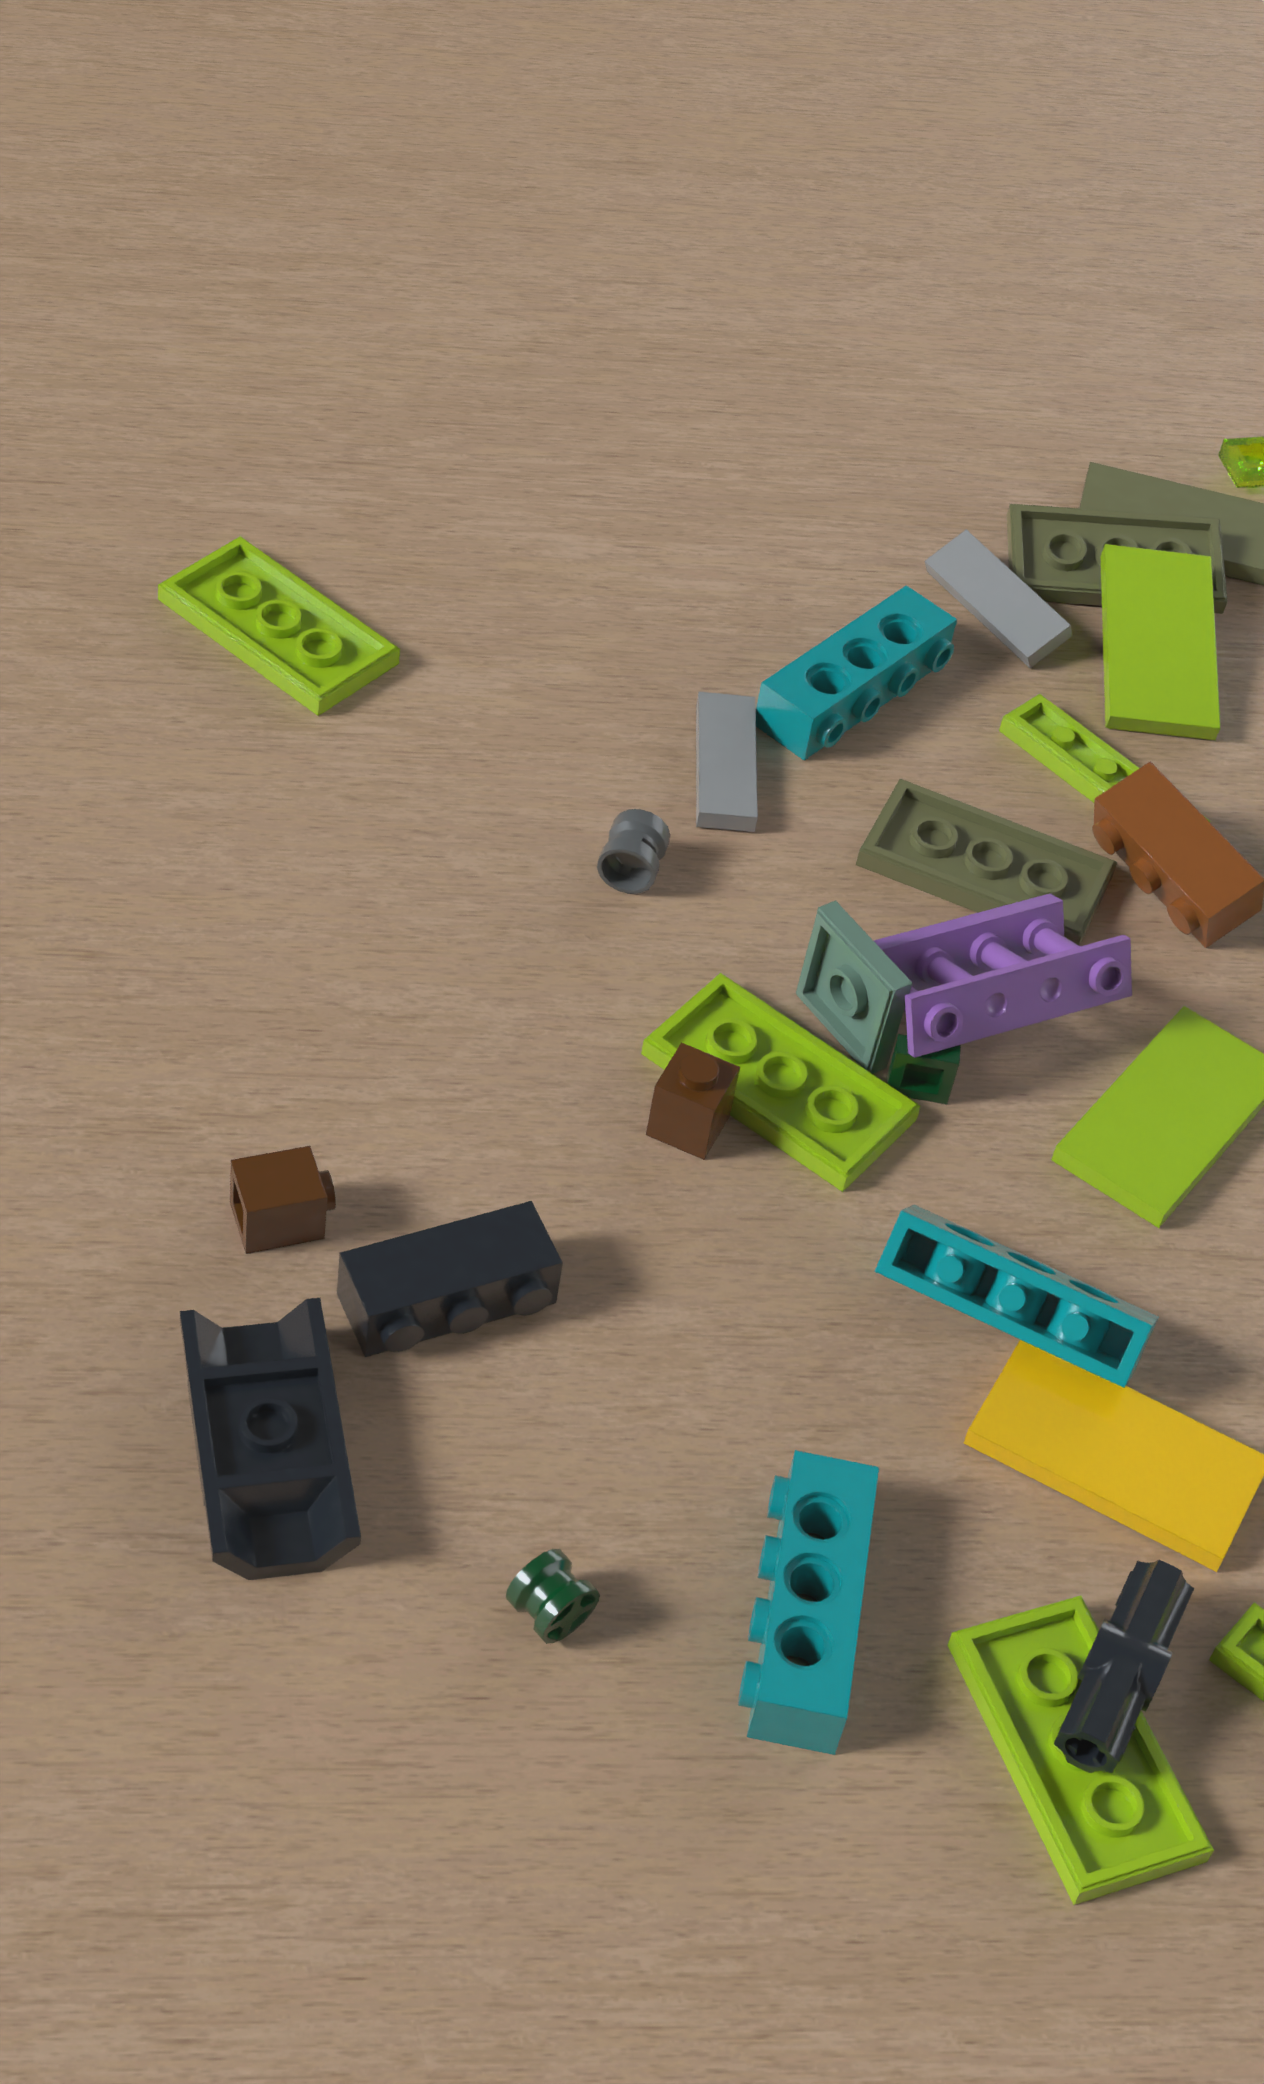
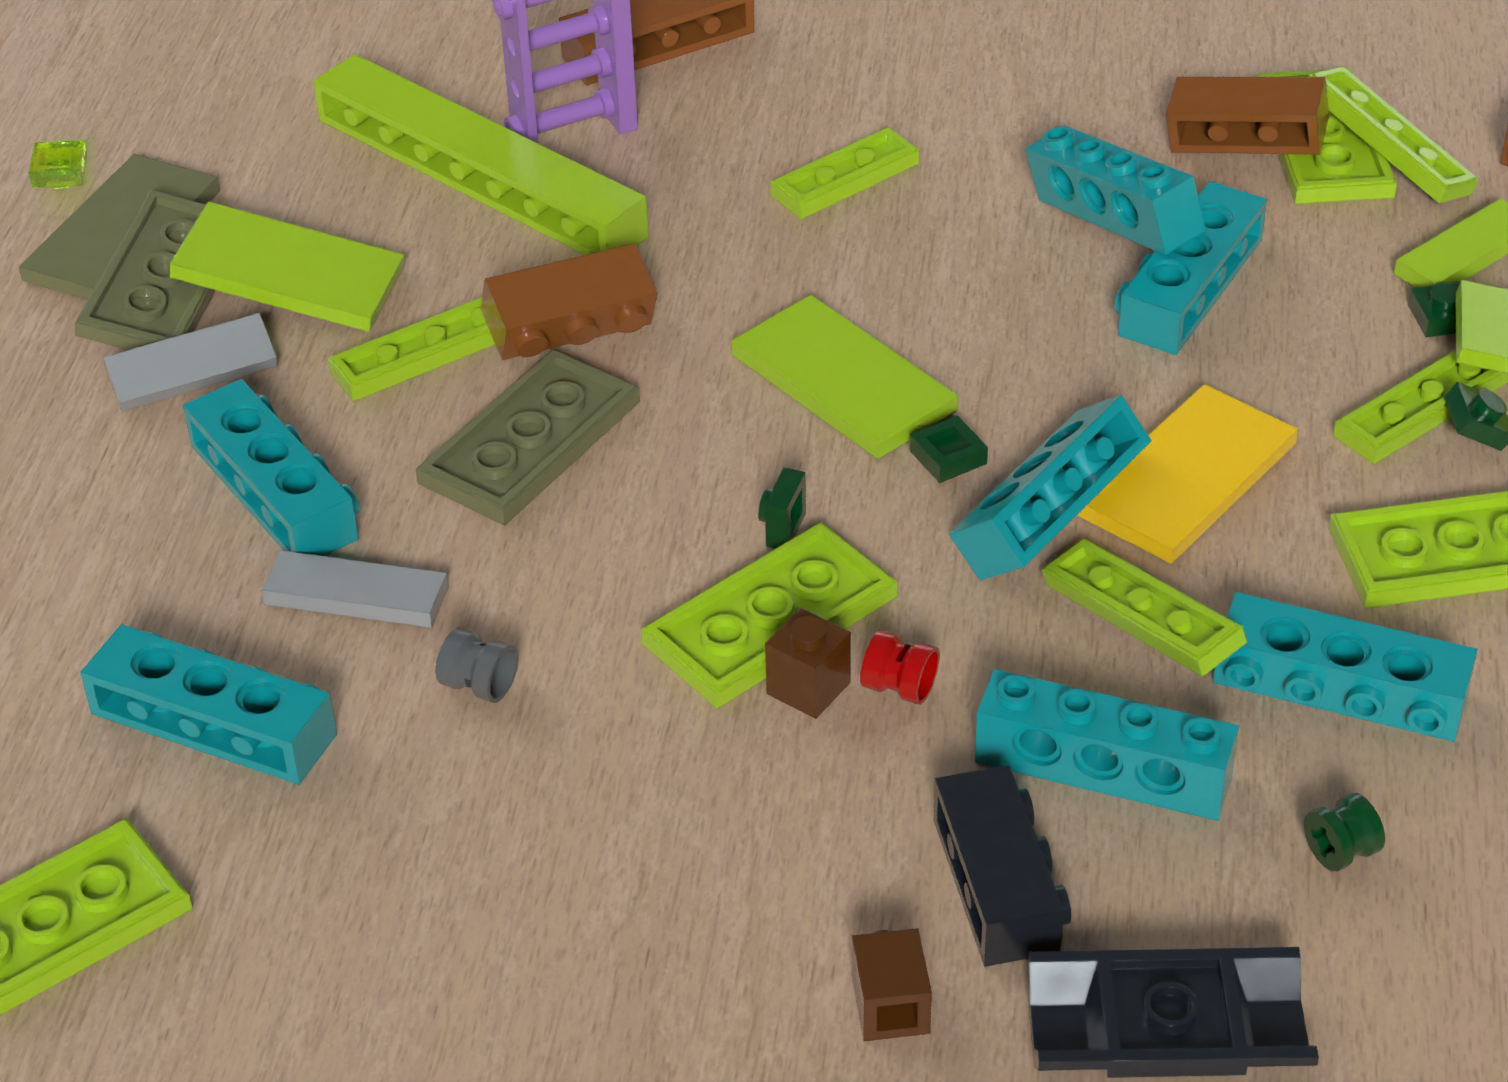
camera: 70 degrees left, 5 degrees down
(542, 677) = (210, 703): none -> teal brick
(632, 1367) = (1106, 744): none -> teal brick
(711, 1182) = (899, 667): none -> red wheel
(844, 1388) = (1144, 607): none -> lime tile
(853, 987) = (705, 524): sand green tile -> none
(1002, 973) = (650, 444): medium lavender fence -> none
(1070, 1210) = (948, 449): none -> dark green plate
(1124, 1667) = (1415, 488): black piece -> none

